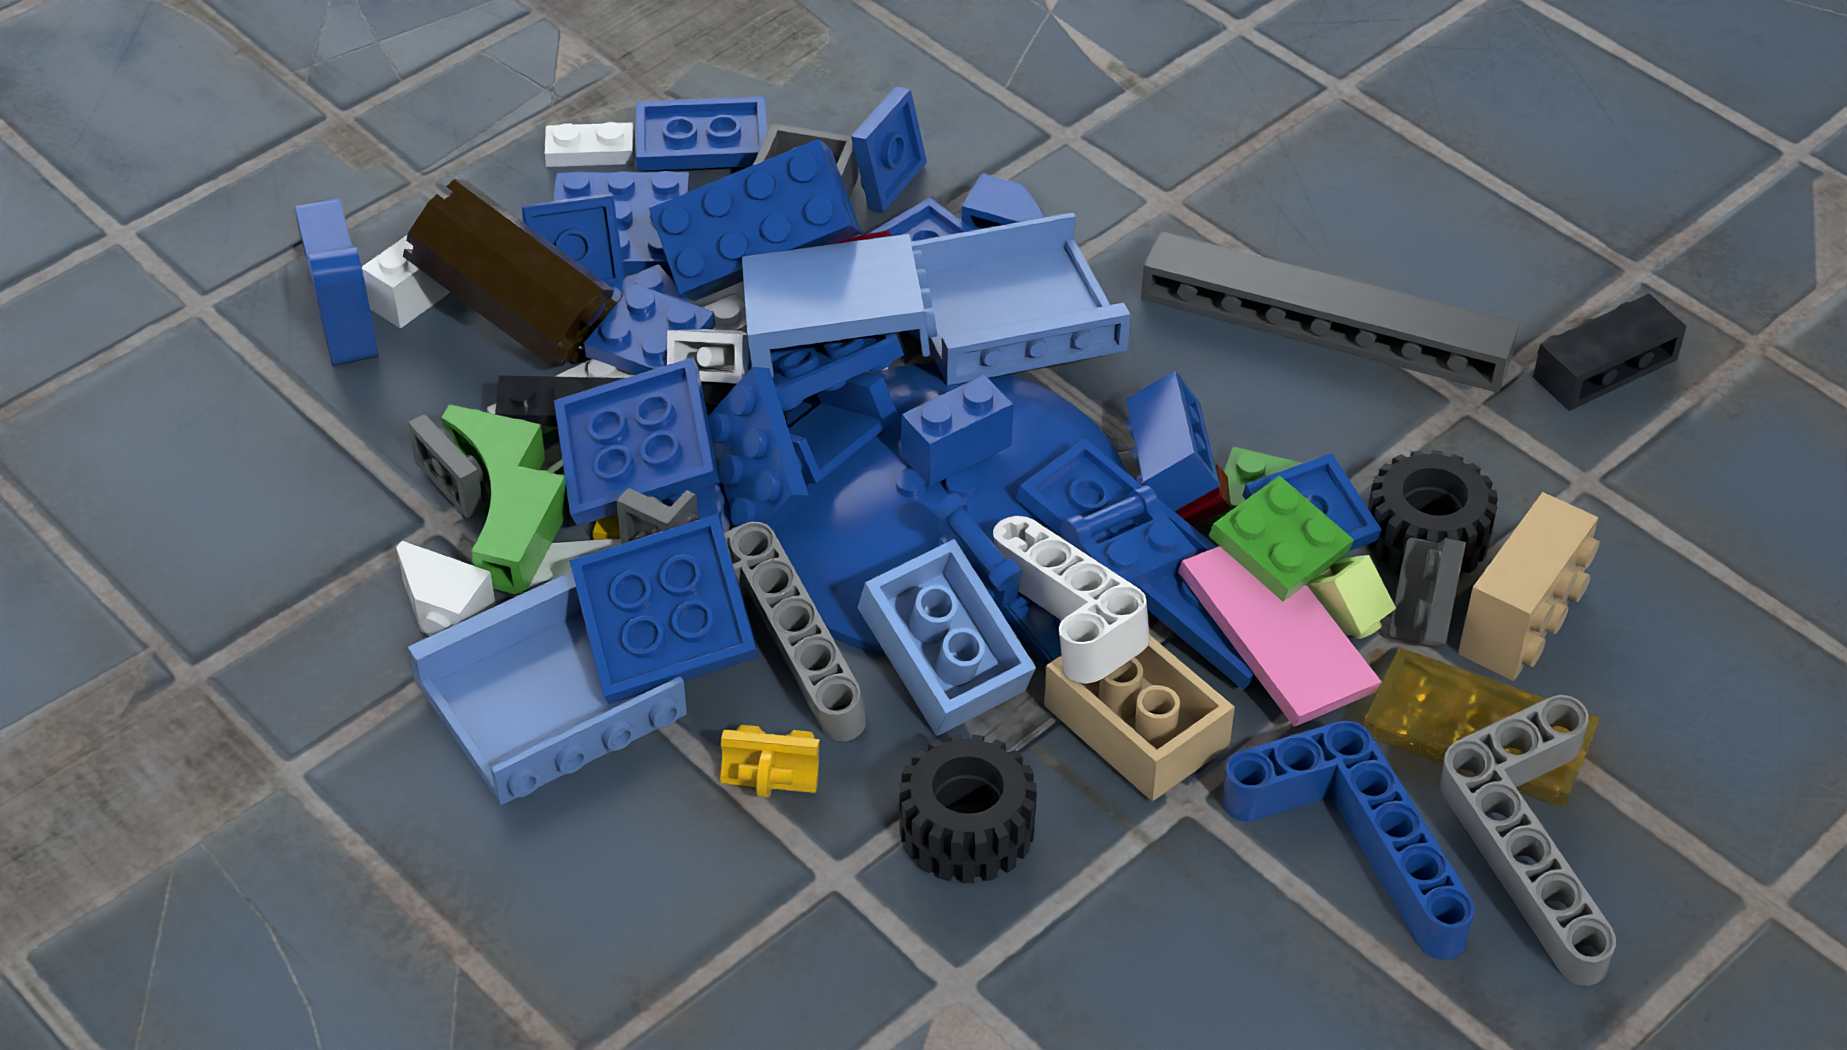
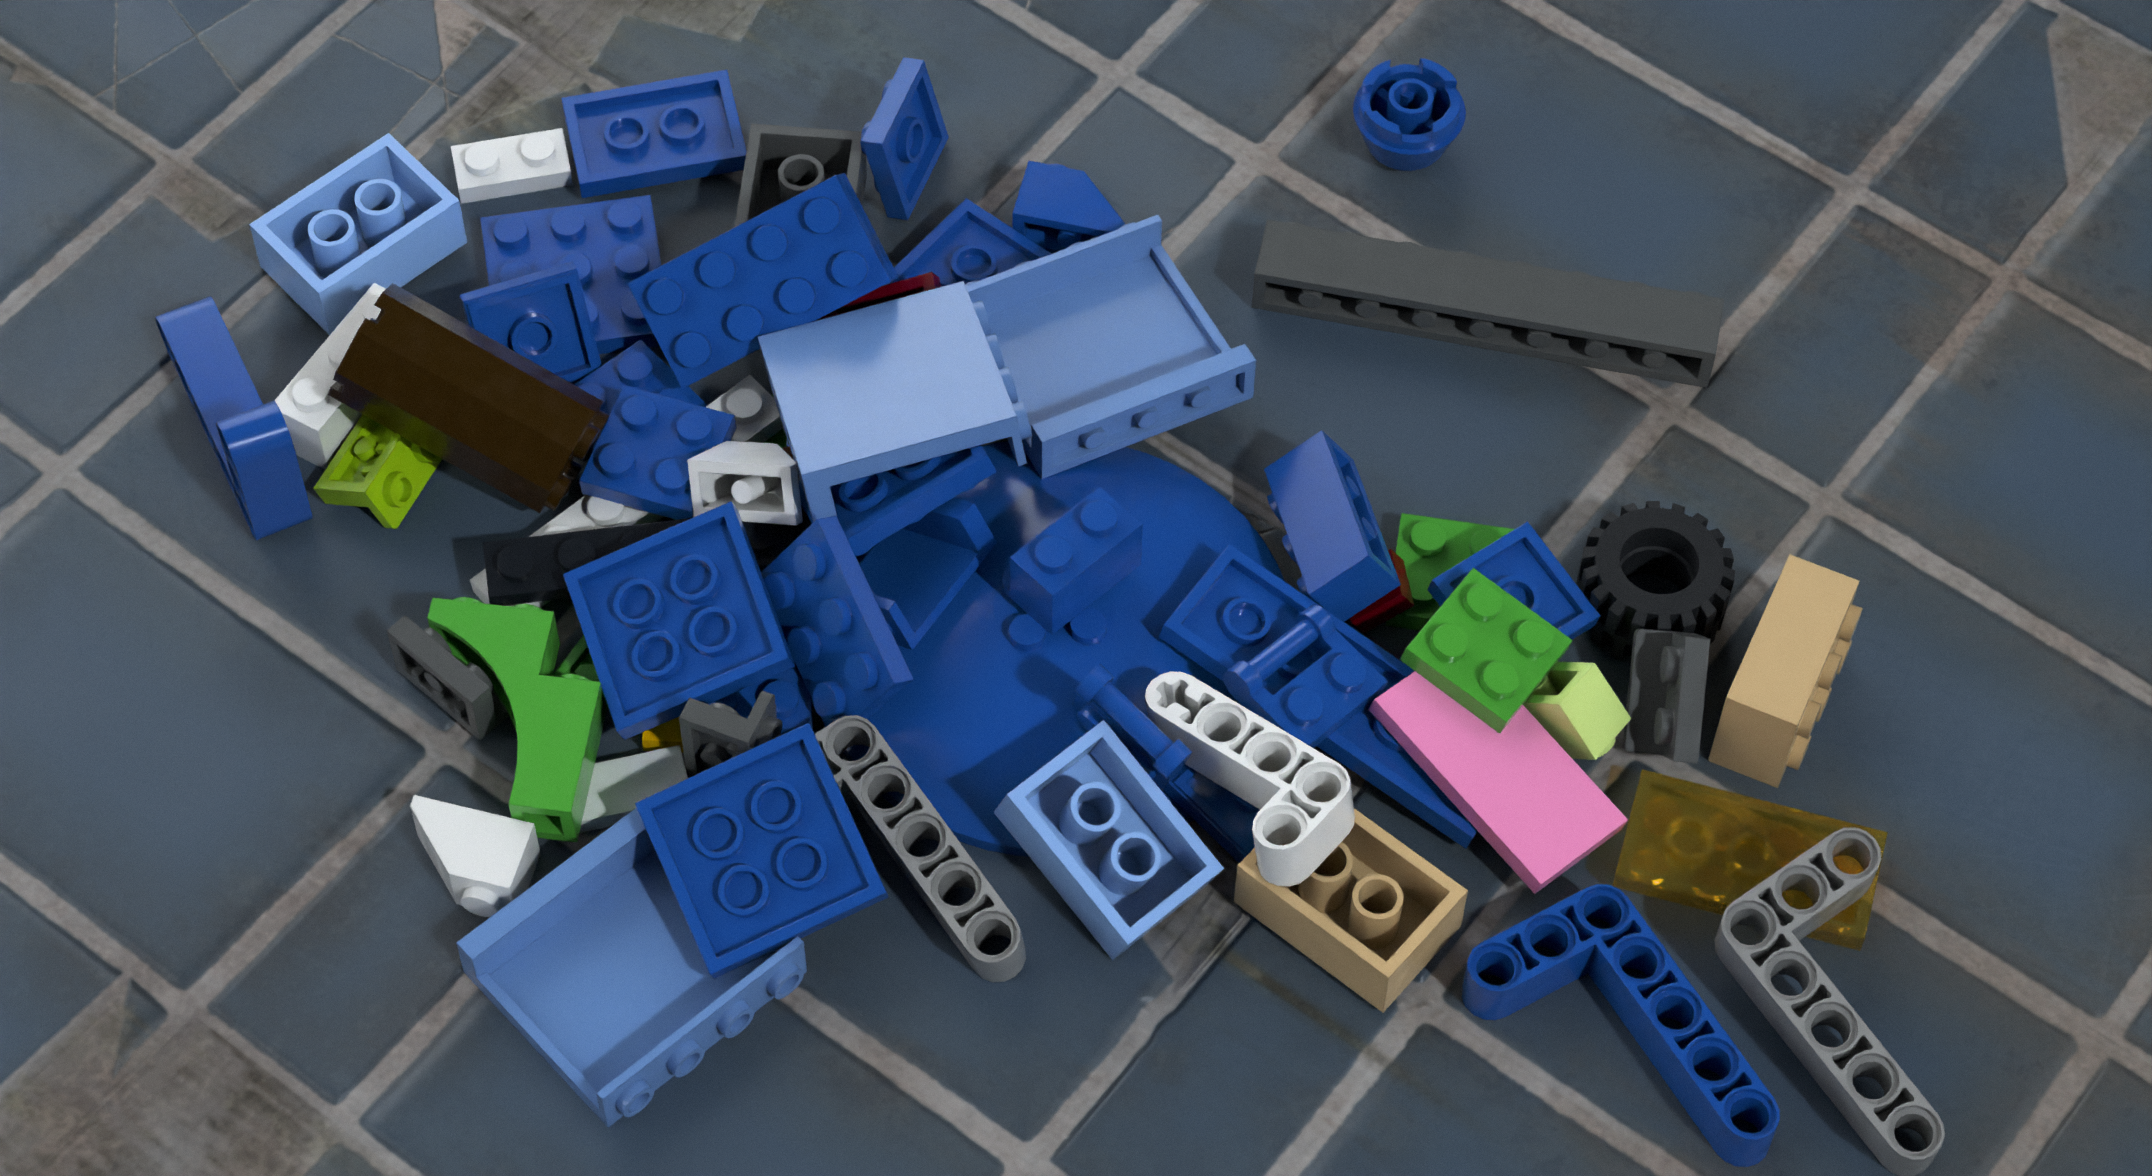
camera: 10 degrees left, 10 degrees up
(439, 327) = (377, 472): none -> lime bracket
(473, 147) = (358, 226): none -> light blue brick
(770, 760) = (924, 1027): yellow hips -> none
(967, 774) = (1181, 1014): black tyre -> none
(1286, 175) = (1409, 113): none -> blue cone
(1609, 351) = (1833, 318): black brick -> none

